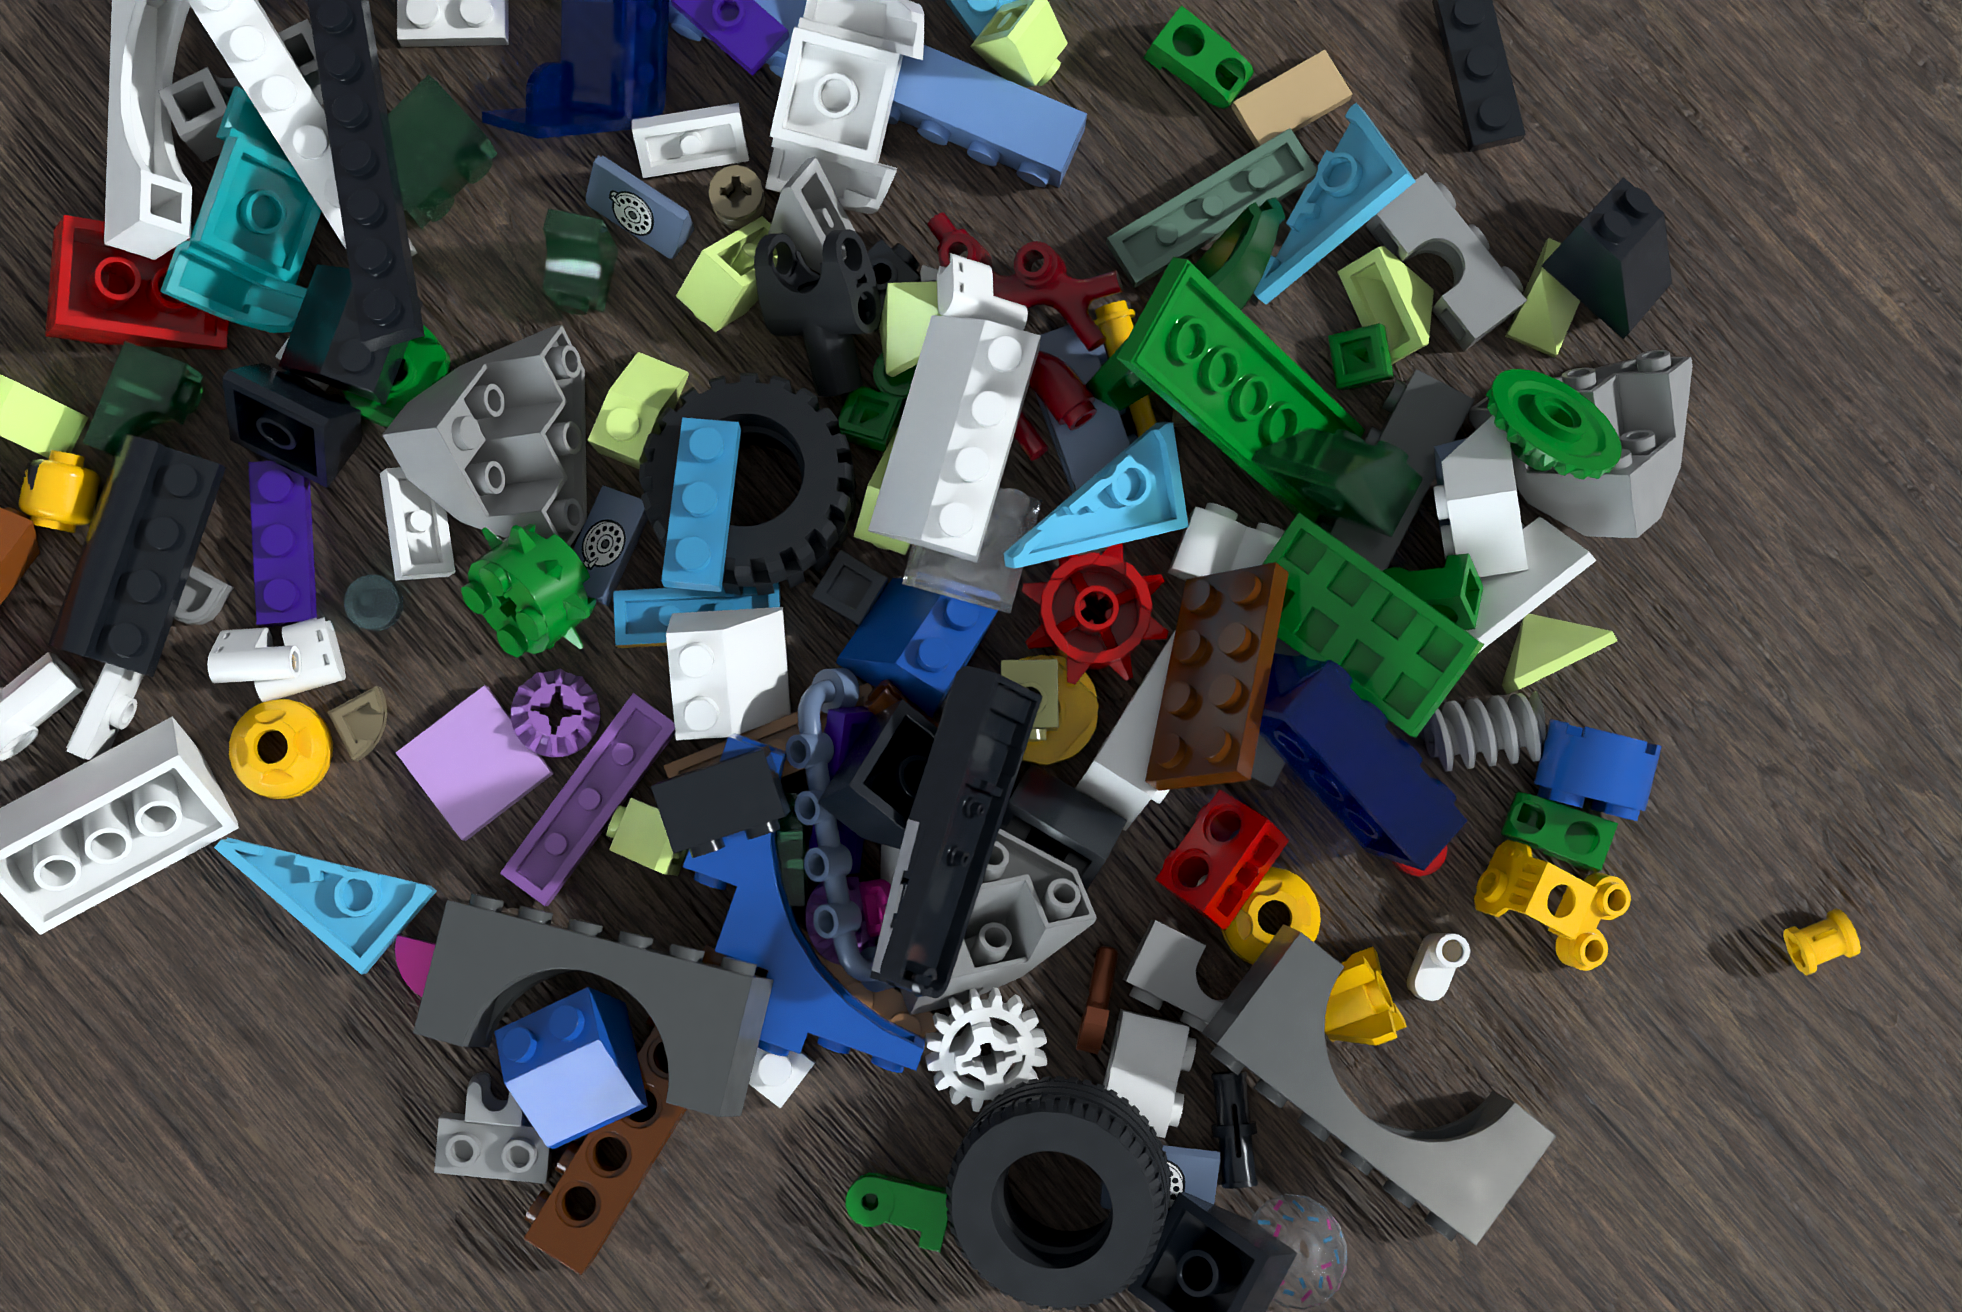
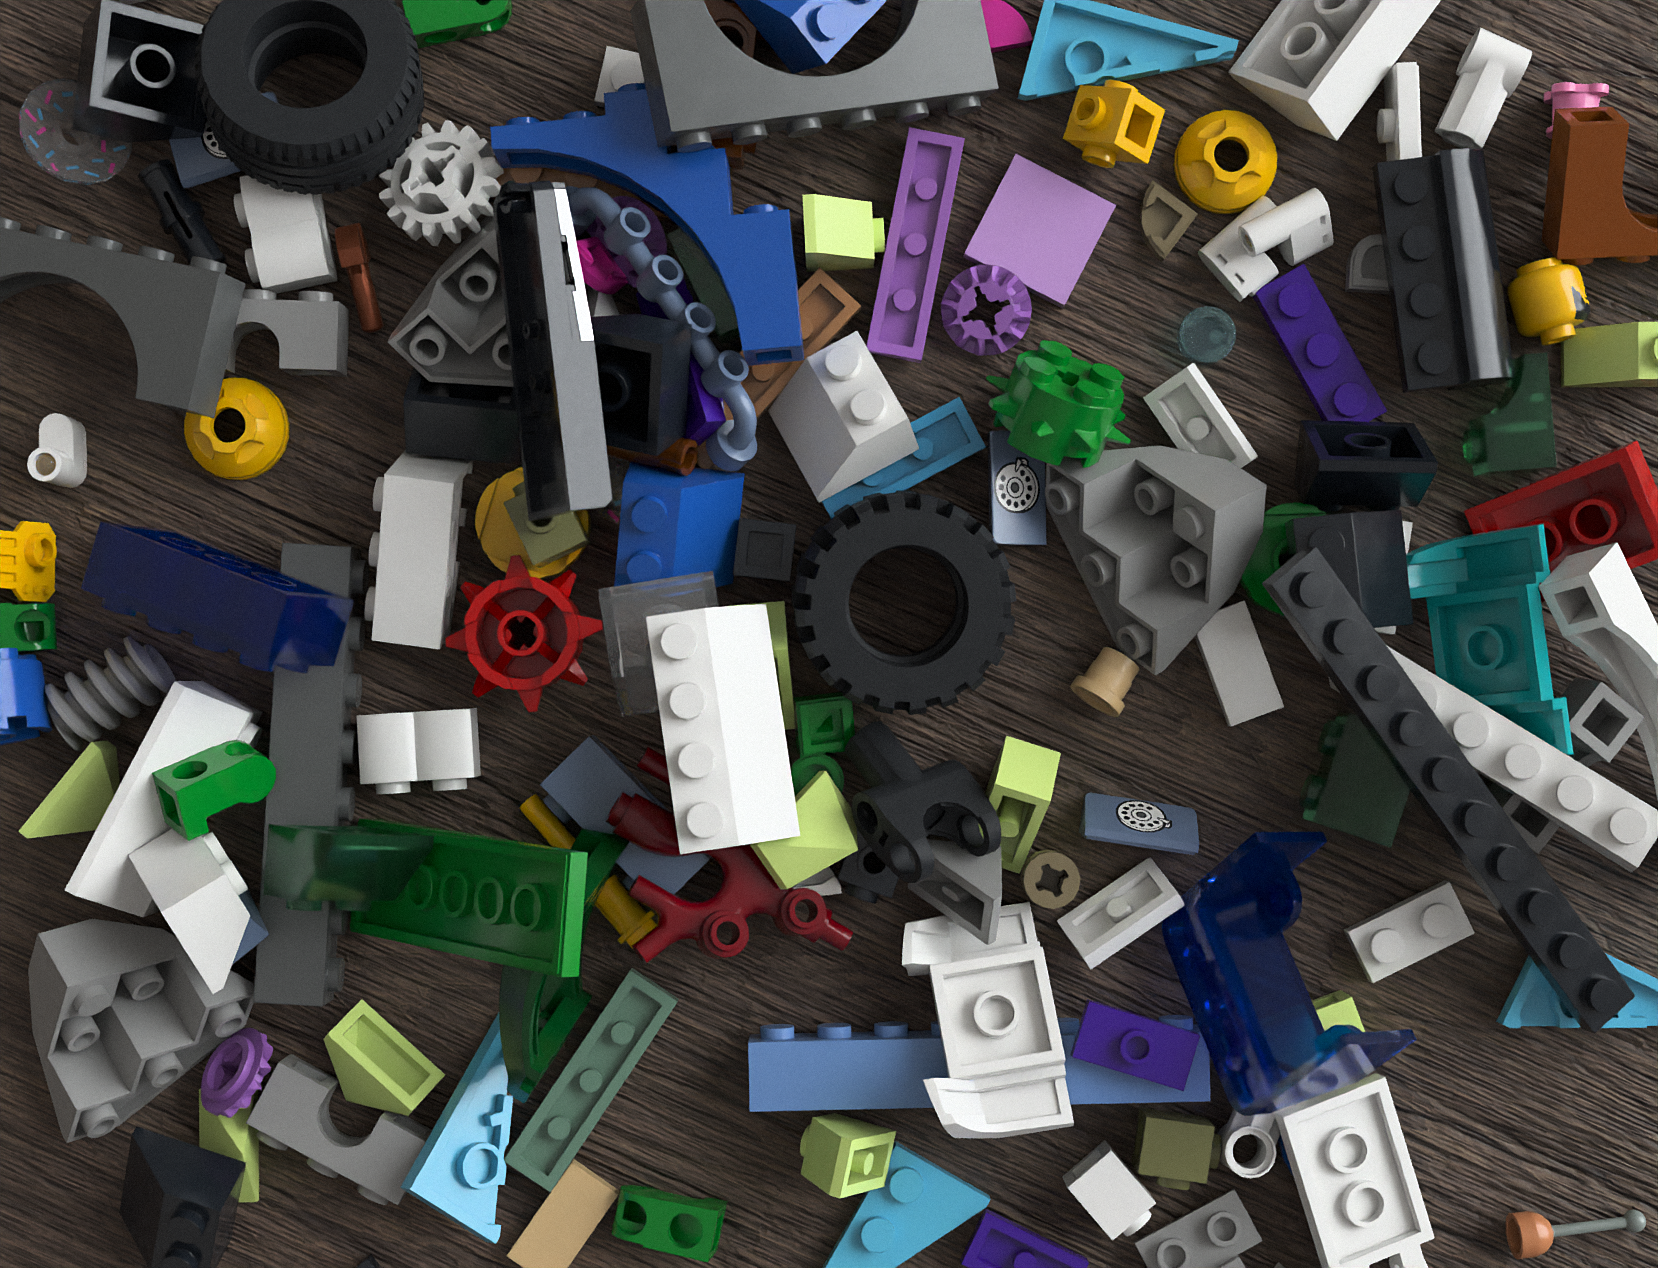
camera: 155 degrees right, 5 degrees up
(361, 822) = (1104, 117): none -> yellow brick
(487, 303) = (1237, 665): none -> white tile
(578, 262) = (1167, 739): clear green arch -> none
(606, 341) = (1106, 681): none -> tan piece
(633, 408) = (1045, 630): yellowish green slope -> none
(701, 504) = (930, 551): dark azure plate -> none
(722, 801) = (776, 279): black brick -> none
(967, 292) = (772, 868): white piece -> none
(1124, 502) = (541, 743): medium azure wing -> none
(1217, 678) = (371, 612): reddish brown plate -> none
(1231, 865) = (287, 452): red brick -> none
(1360, 357) = (384, 999): green tile -> none
(1361, 1003) = (107, 378): yellow brick -> none
(1376, 629) = (262, 725): green plate -> none
(1536, 341) = (228, 1091): none -> medium lavender gear
(1553, 425) = (160, 1004): green gear -> none

